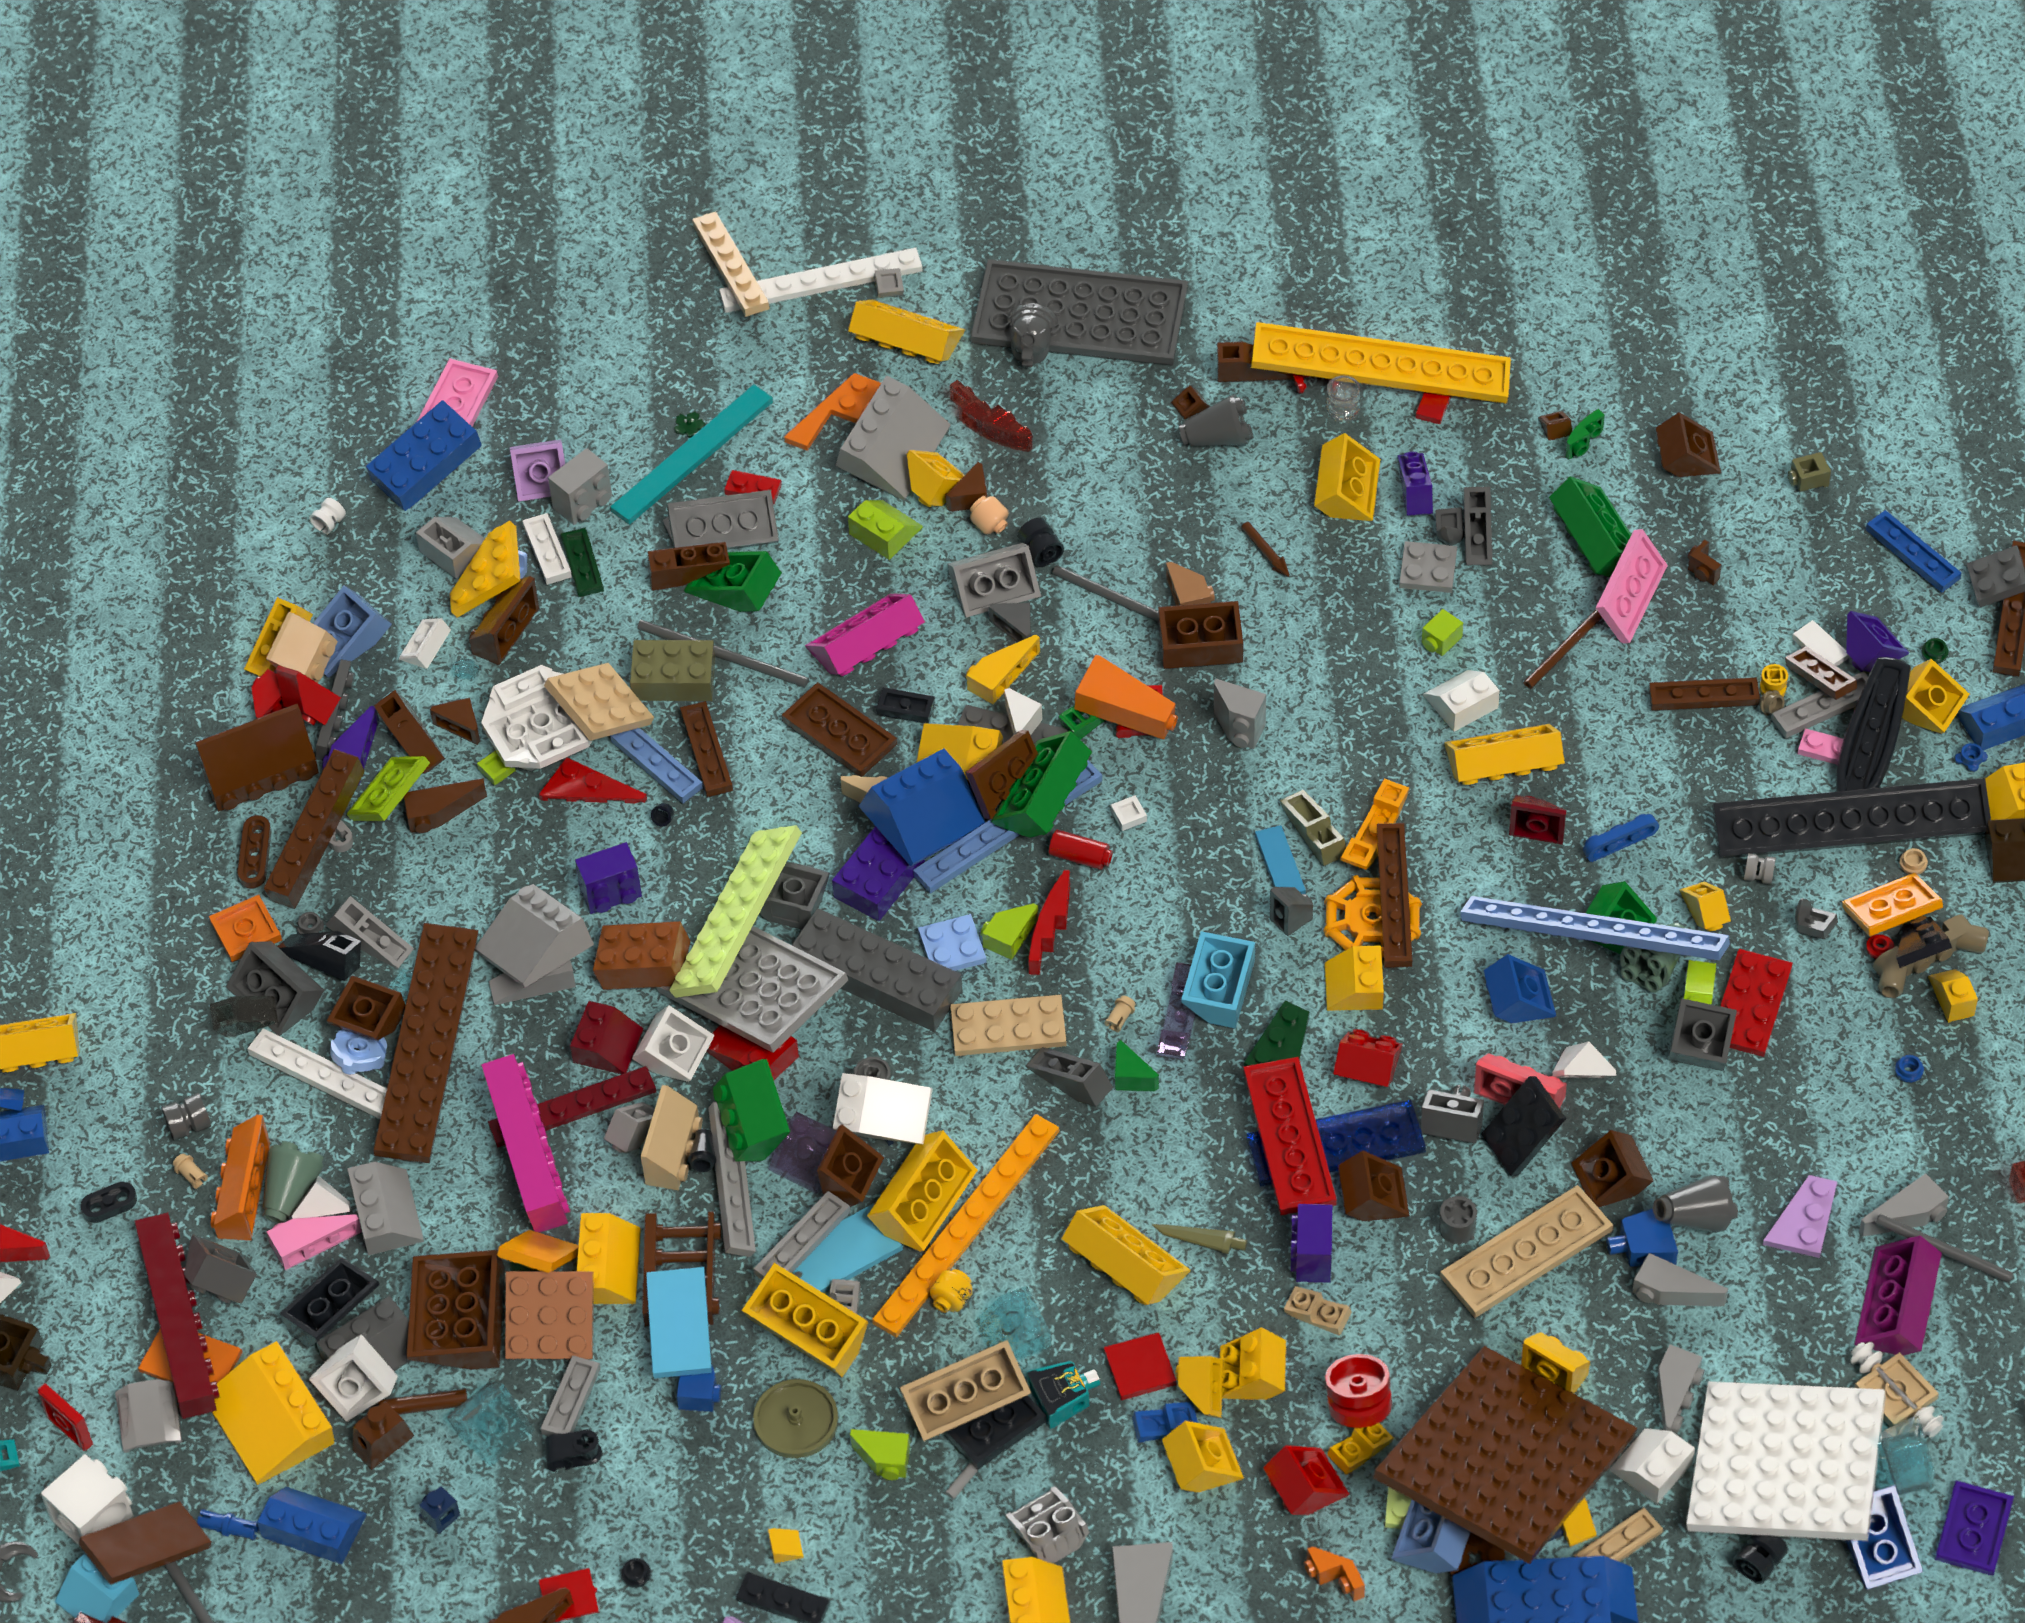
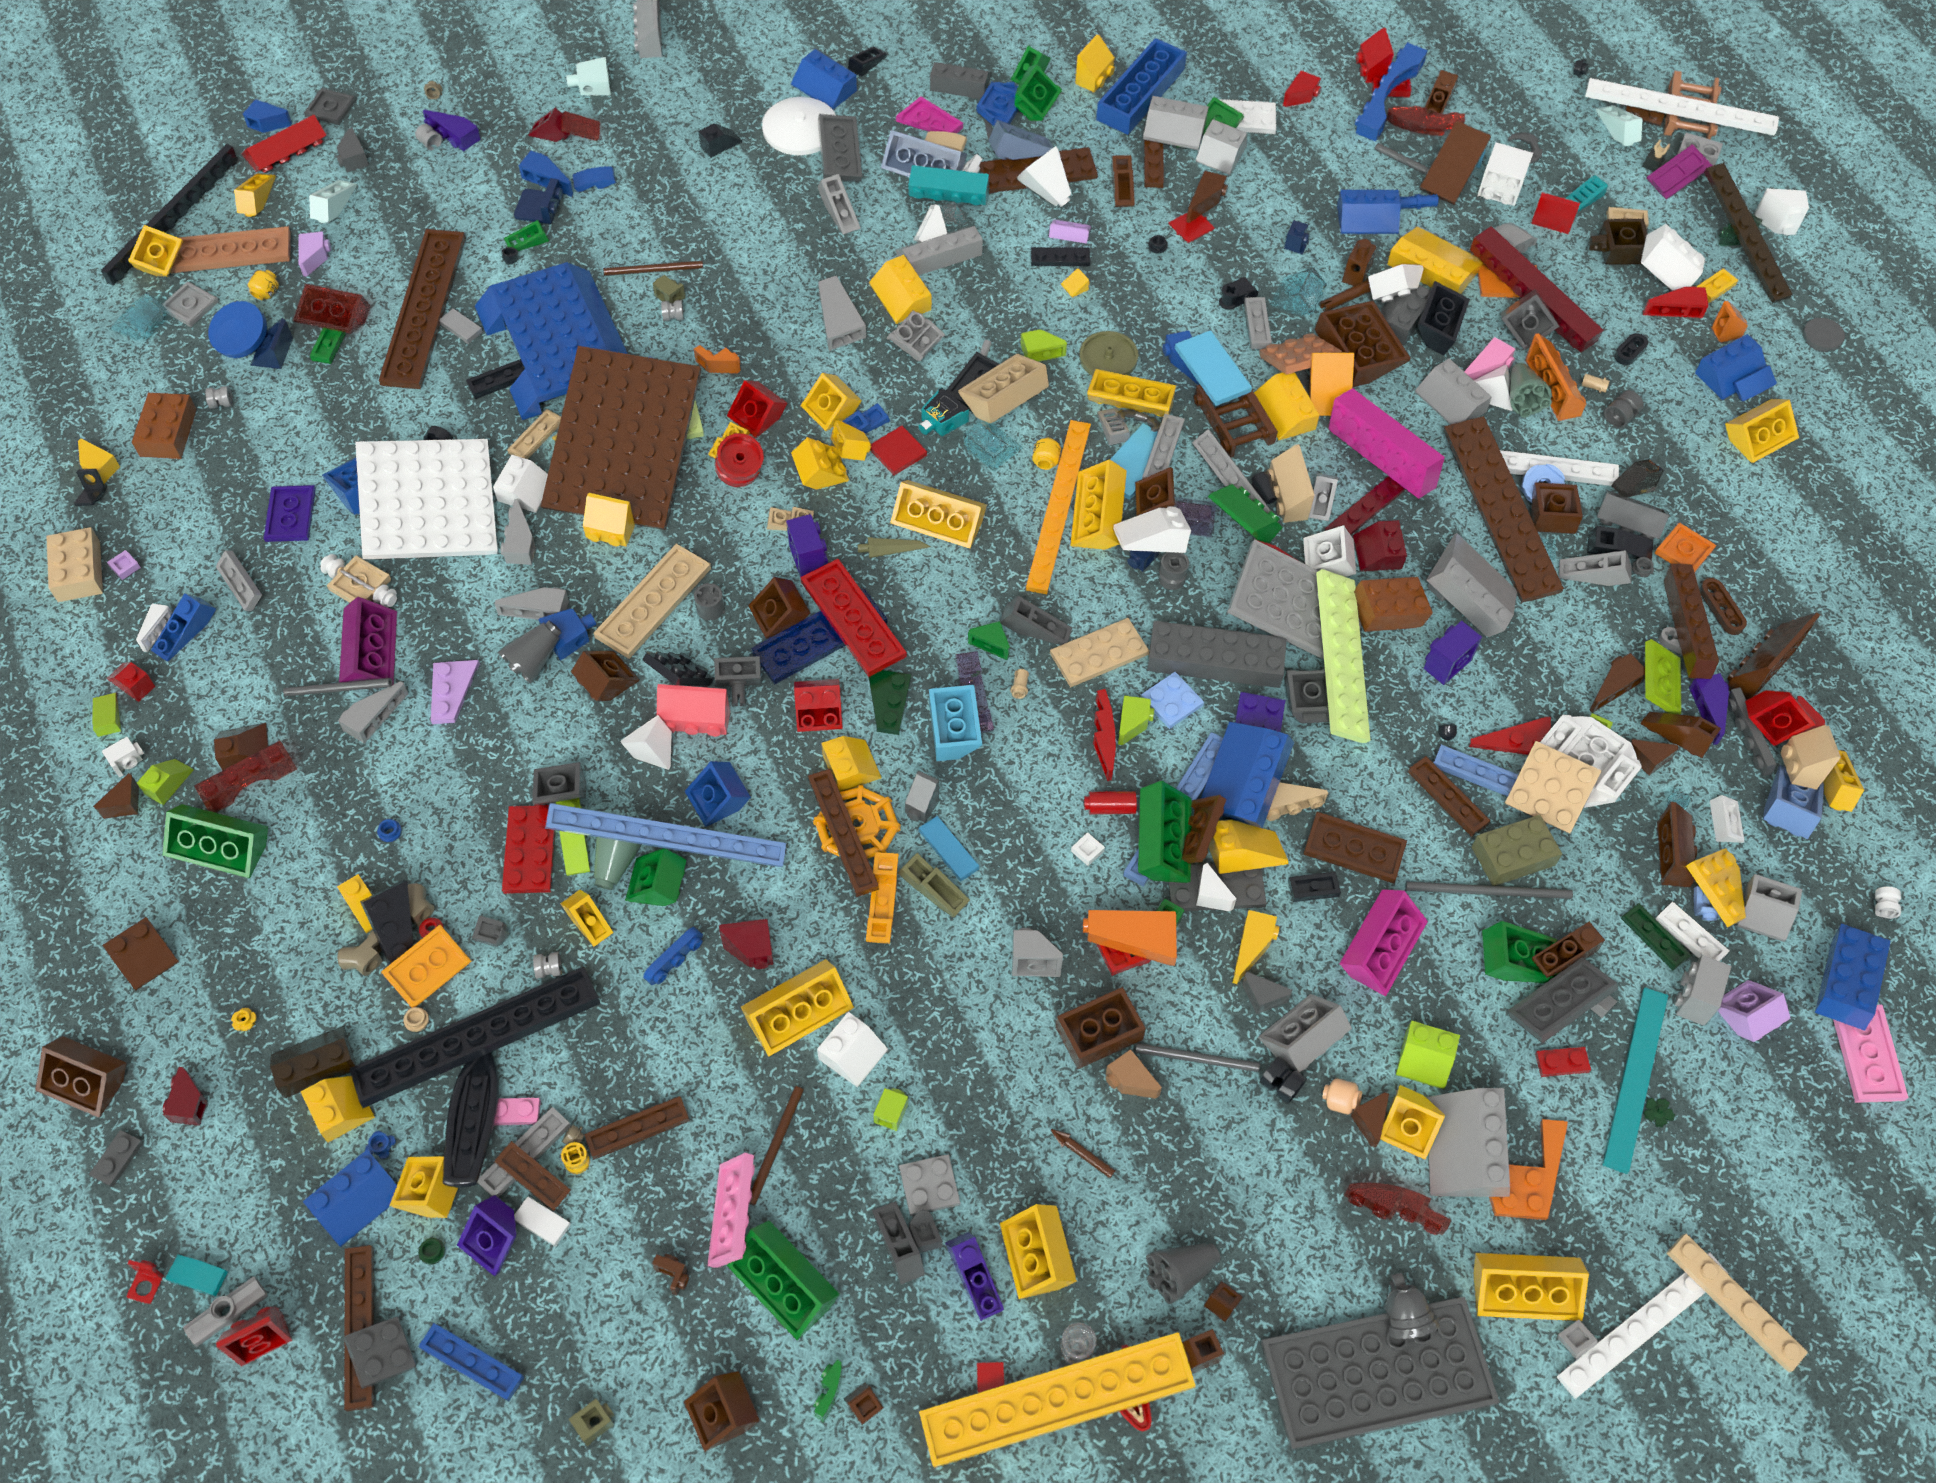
camera: 155 degrees right, 5 degrees up
(1907, 1456) = (338, 521): clear light blue slope -> none

